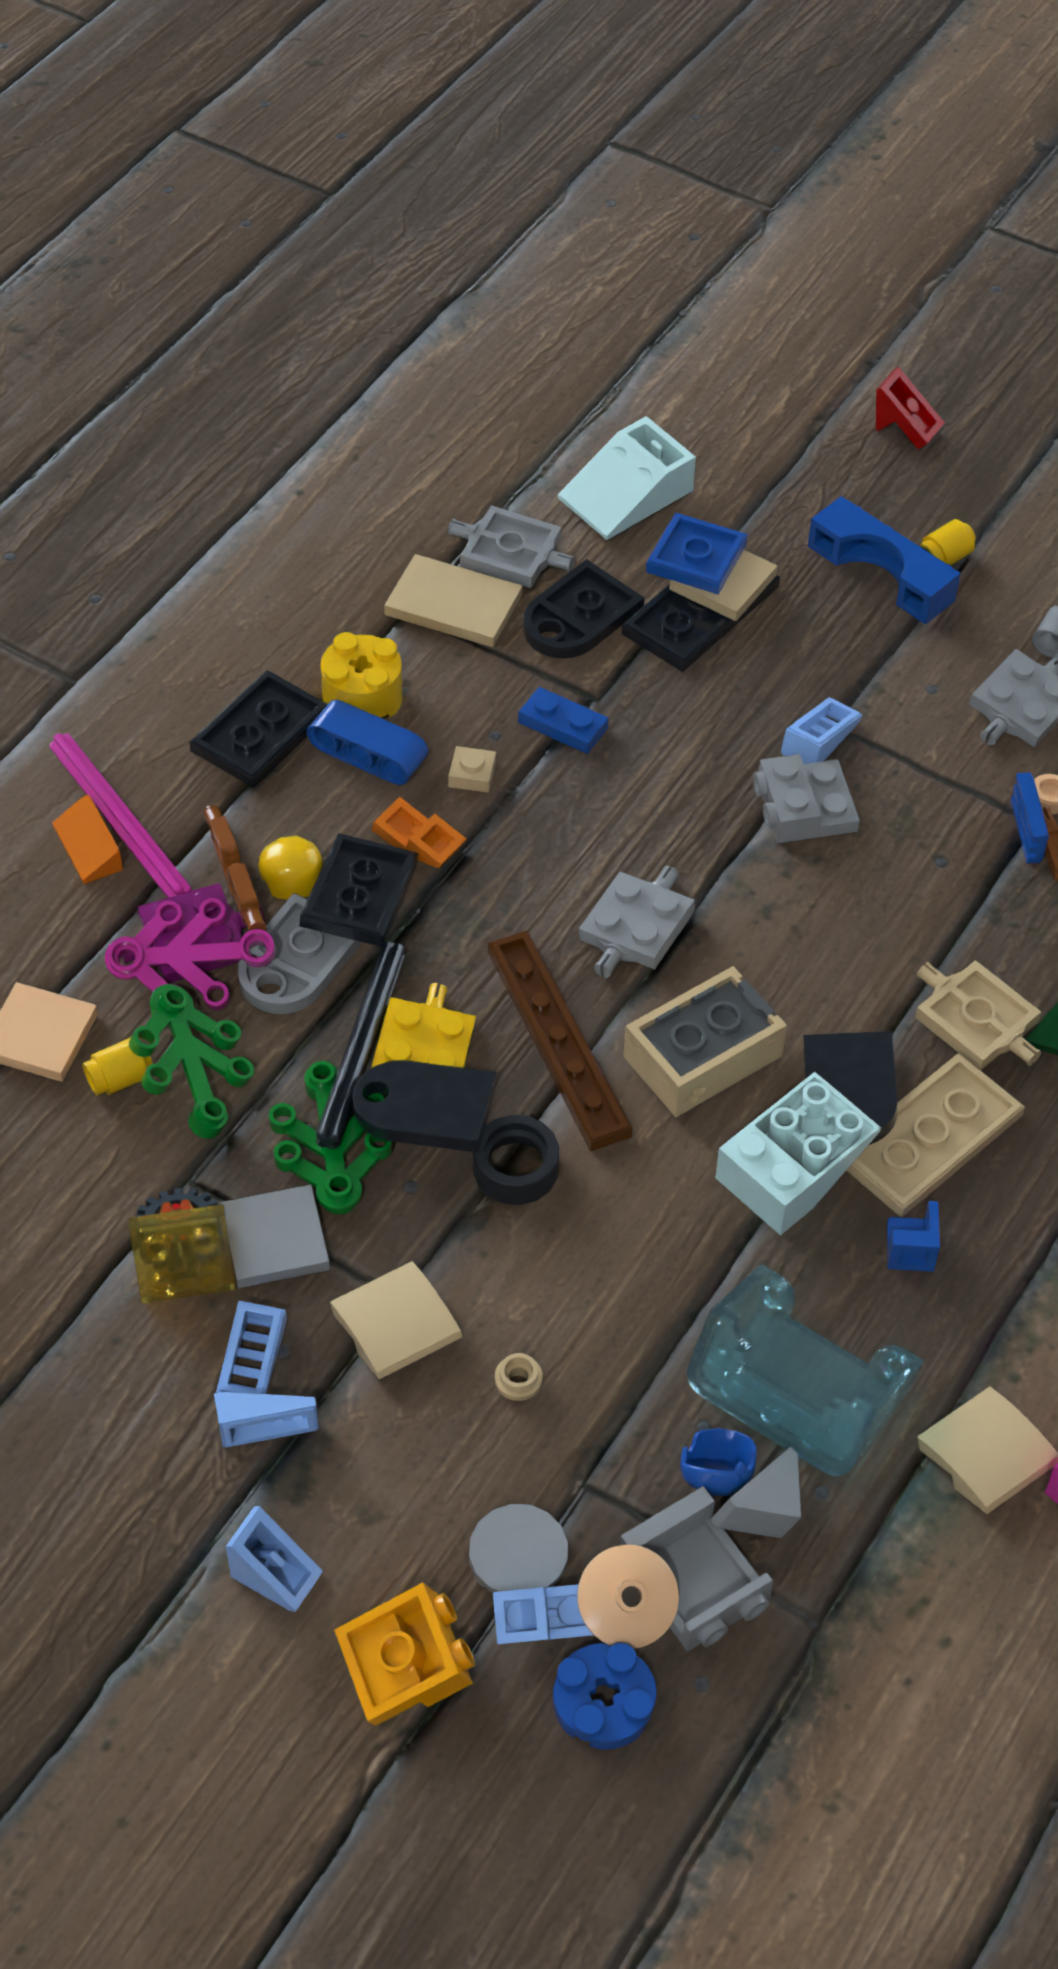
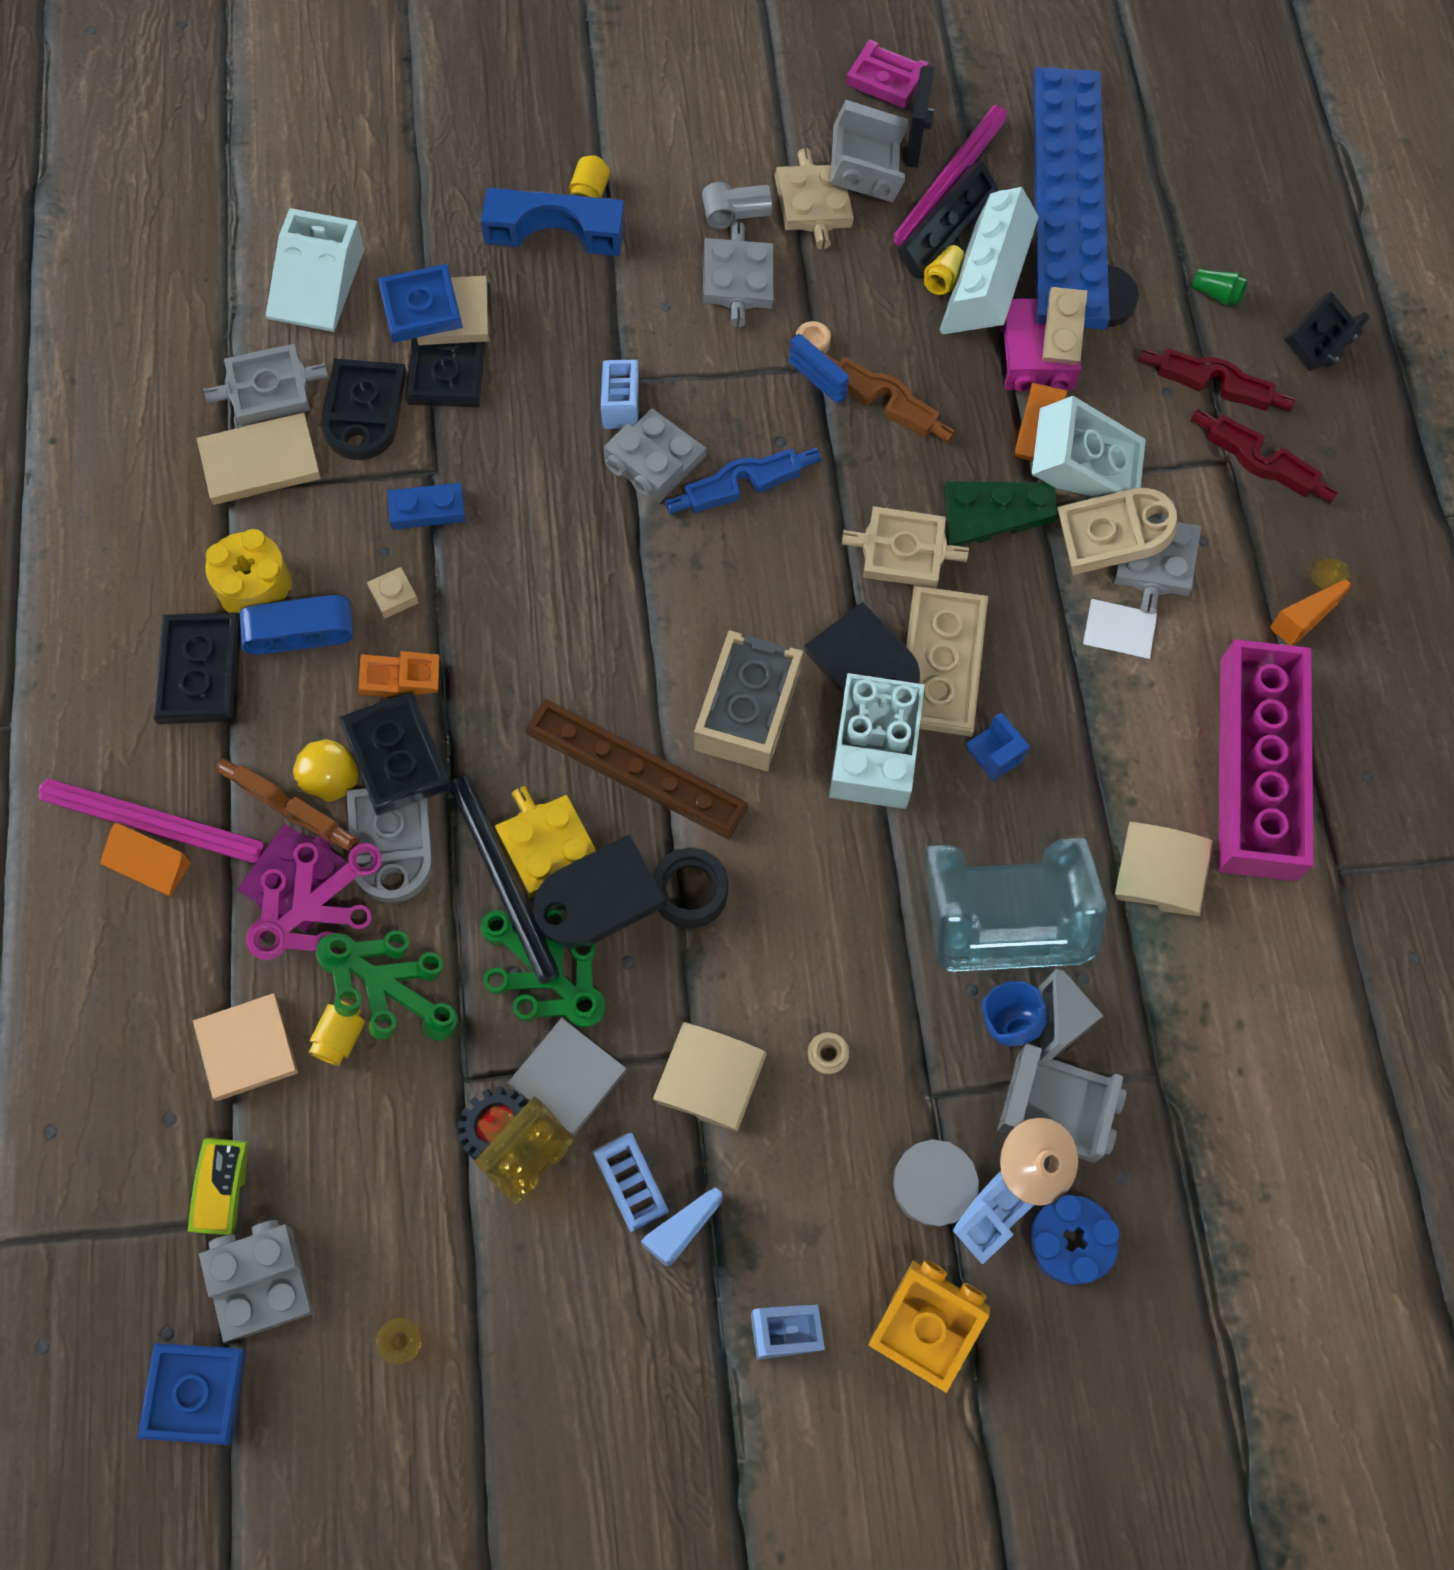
camera: 40 degrees left, 15 degrees up
(636, 920) = (615, 635): light grey plate -> none
(895, 873) = (761, 474): none -> blue piece
(902, 403) = (470, 81): red slope -> none

